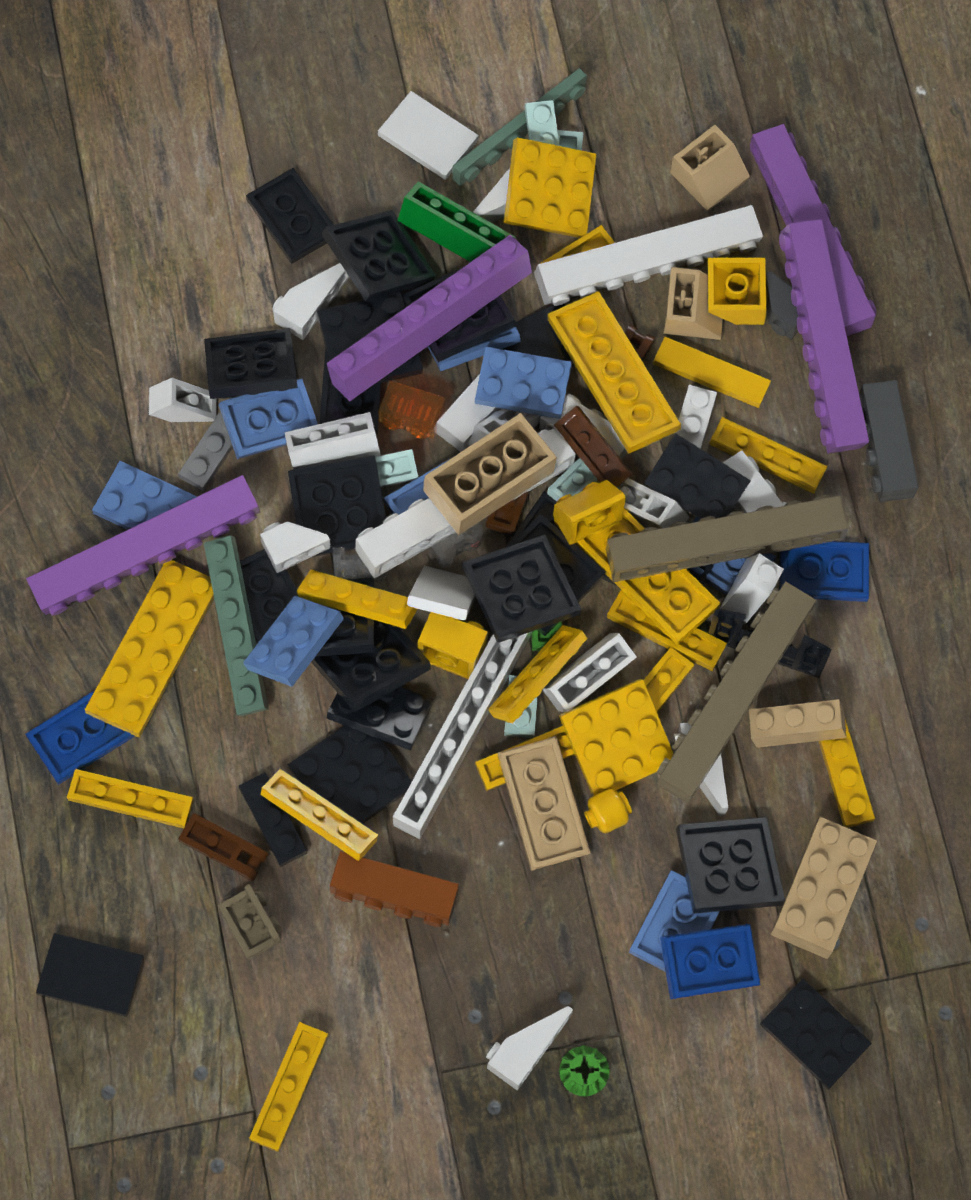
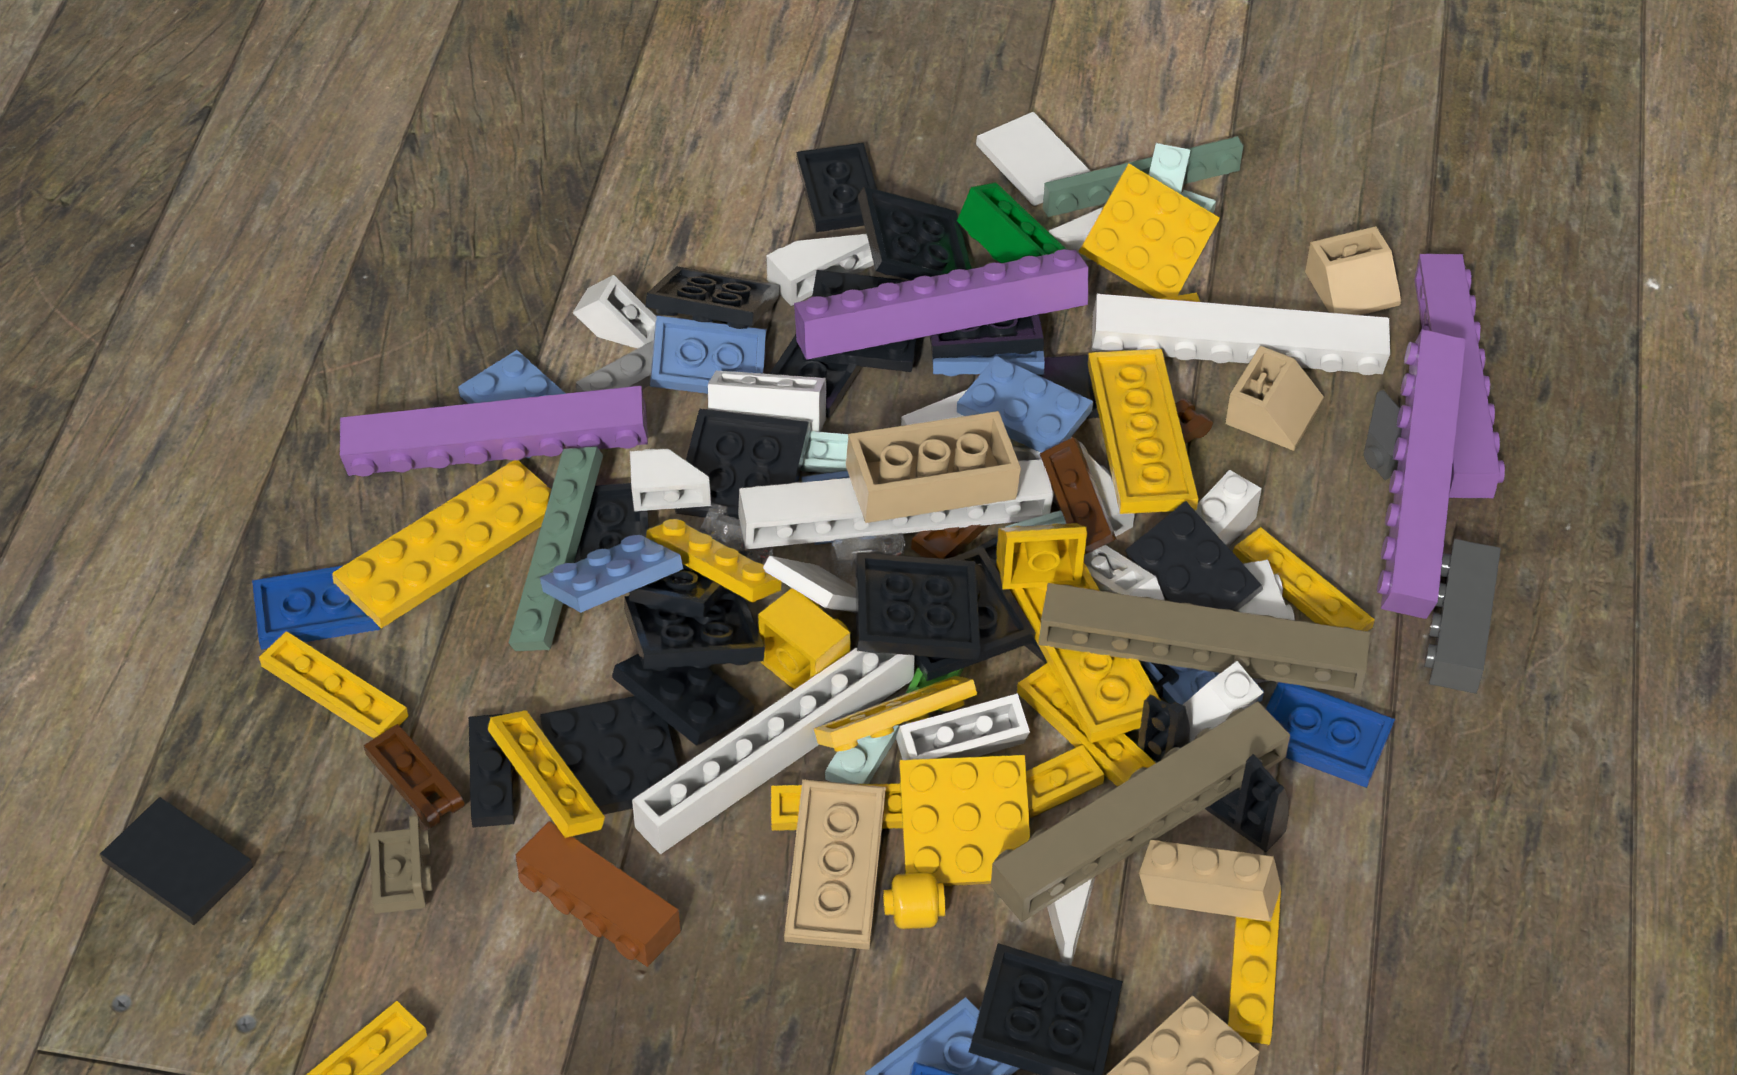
camera: 25 degrees right, 20 degrees down
(411, 410) = (876, 398): clear orange brick -> none
(711, 372) = (1279, 486): yellow tile -> none
(737, 290) = (1335, 398): yellow slope -> none

